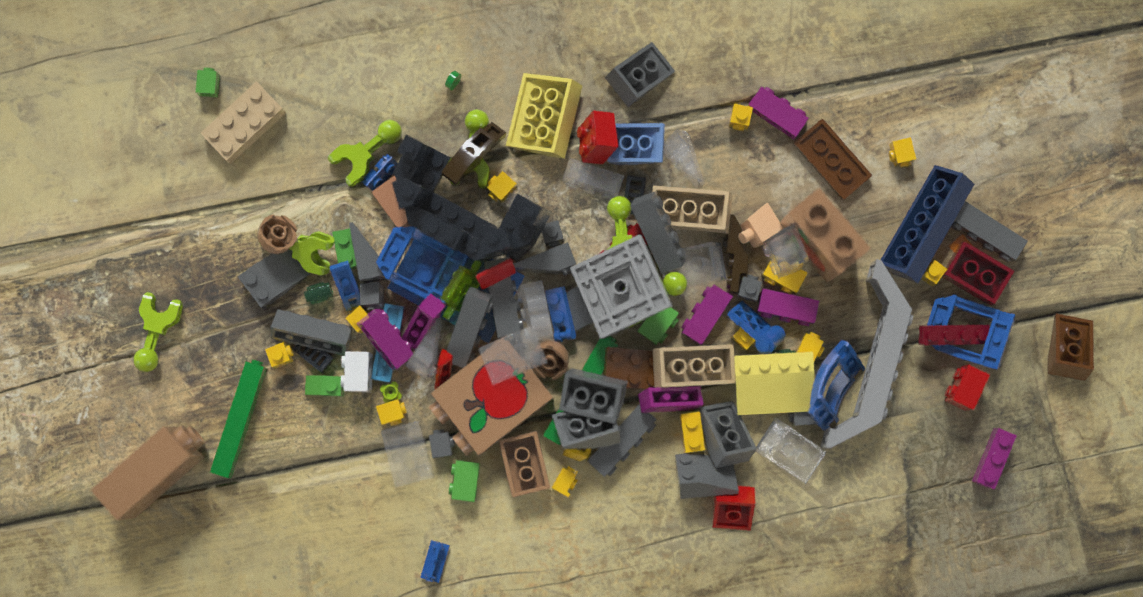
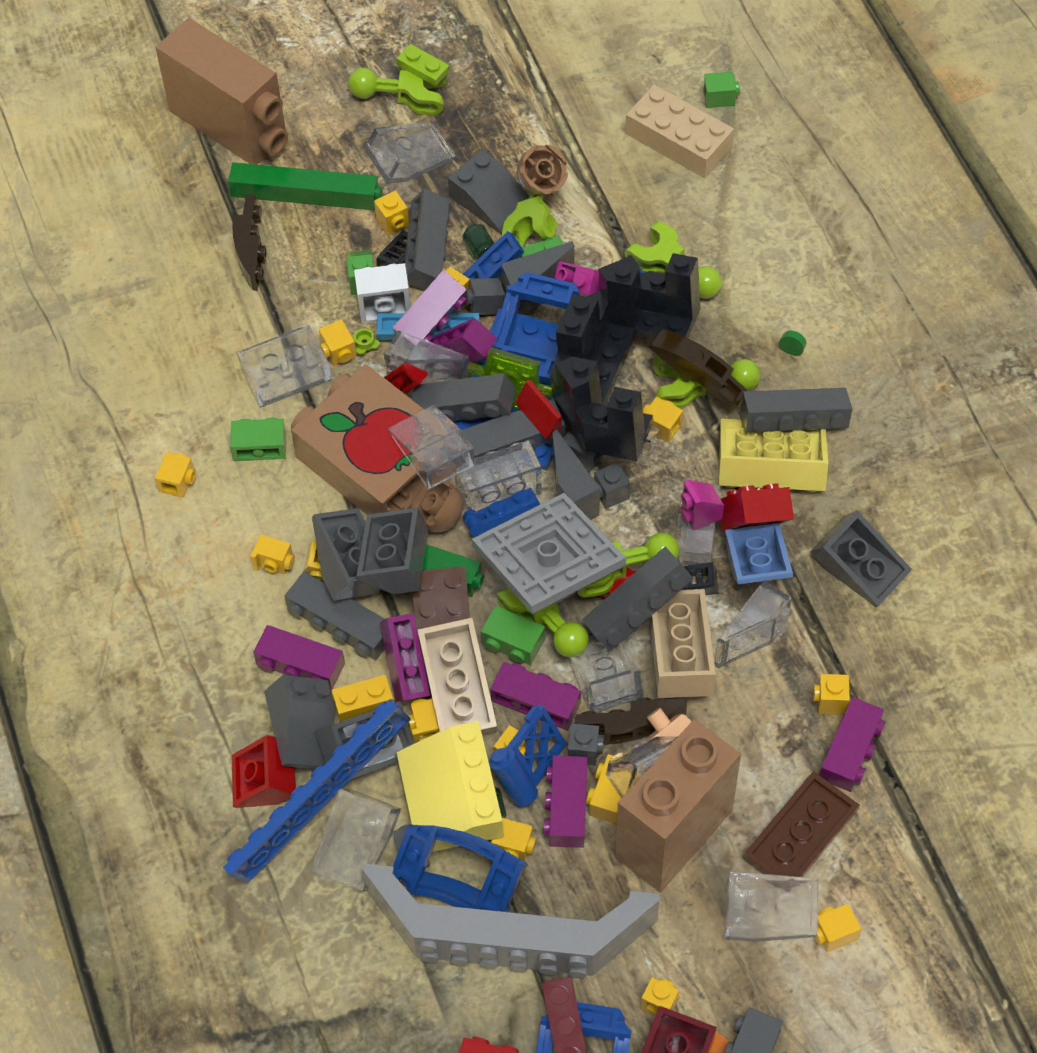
camera: 80 degrees right, 25 degrees down
(142, 310) = (422, 65): none -> lime plate
(220, 333) = (407, 151): none -> clear slope
(292, 468) = (248, 242): none -> dark brown slope
(383, 221) = (585, 278): none -> dark pink slope
(434, 561) = (146, 424): blue hinge -> none
(441, 443) = (301, 397): dark grey brick -> none
(484, 543) = (175, 474): none -> yellow brick
(514, 91) = (795, 409): none -> dark grey brick
(524, 464) = (288, 499): medium nougat brick -> none
(591, 174) = (700, 504): none -> dark pink slope
(650, 472) = (298, 656): none -> magenta brick
(713, 393) = (423, 720): none -> yellow brick
(771, 474) = (312, 797): none -> blue plate
(886, 191) = (770, 907): none -> clear slope
(926, 223) = (732, 971): dark blue brick -> none

